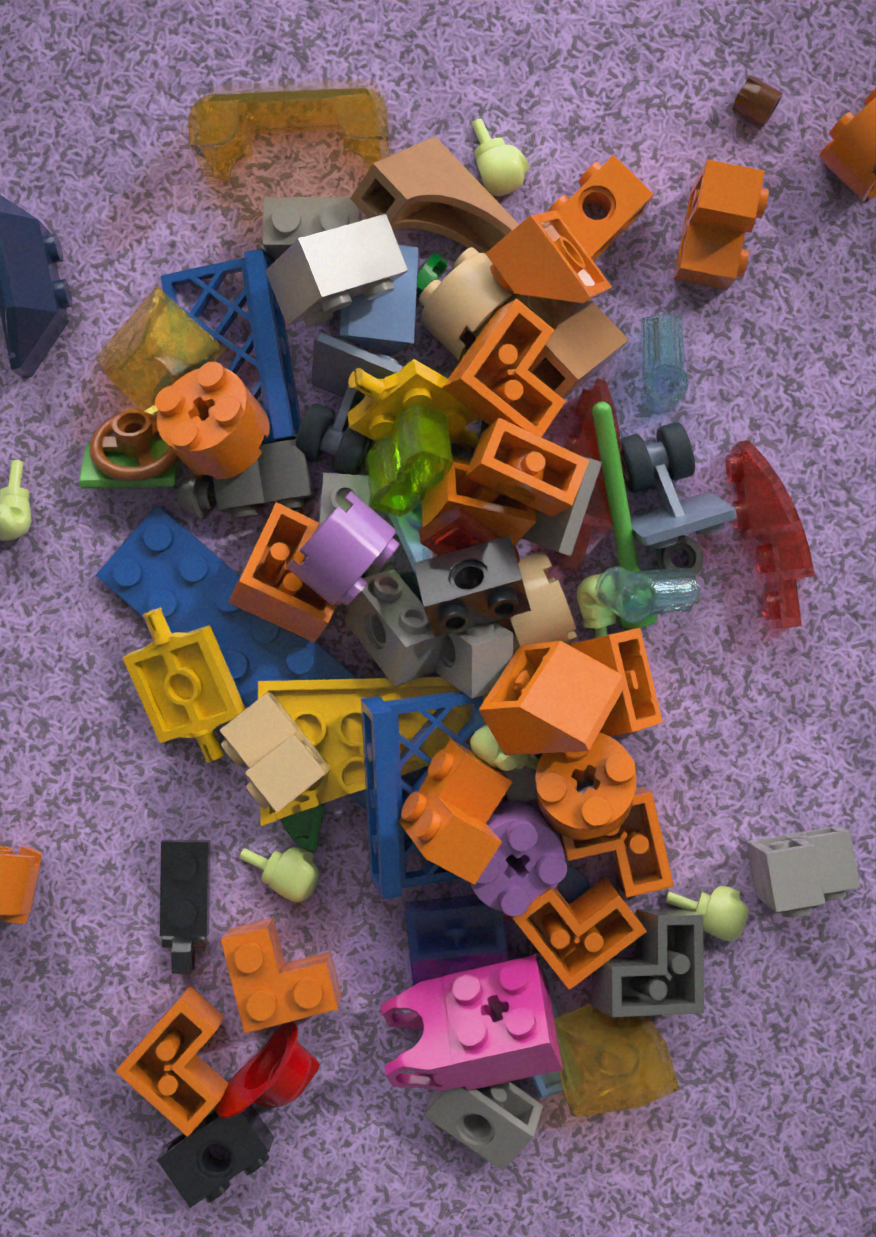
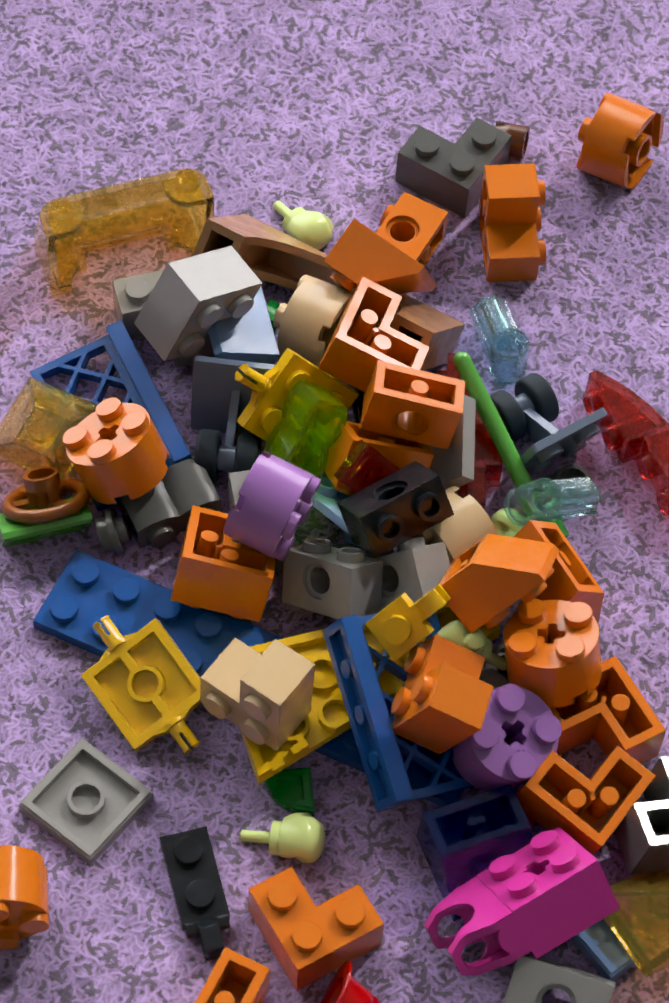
camera: 25 degrees left, 30 degrees down
(103, 780) = (86, 801): none -> light grey tile
(440, 732) = (405, 623): none -> yellow plate
(679, 135) = (451, 171): none -> dark grey brick

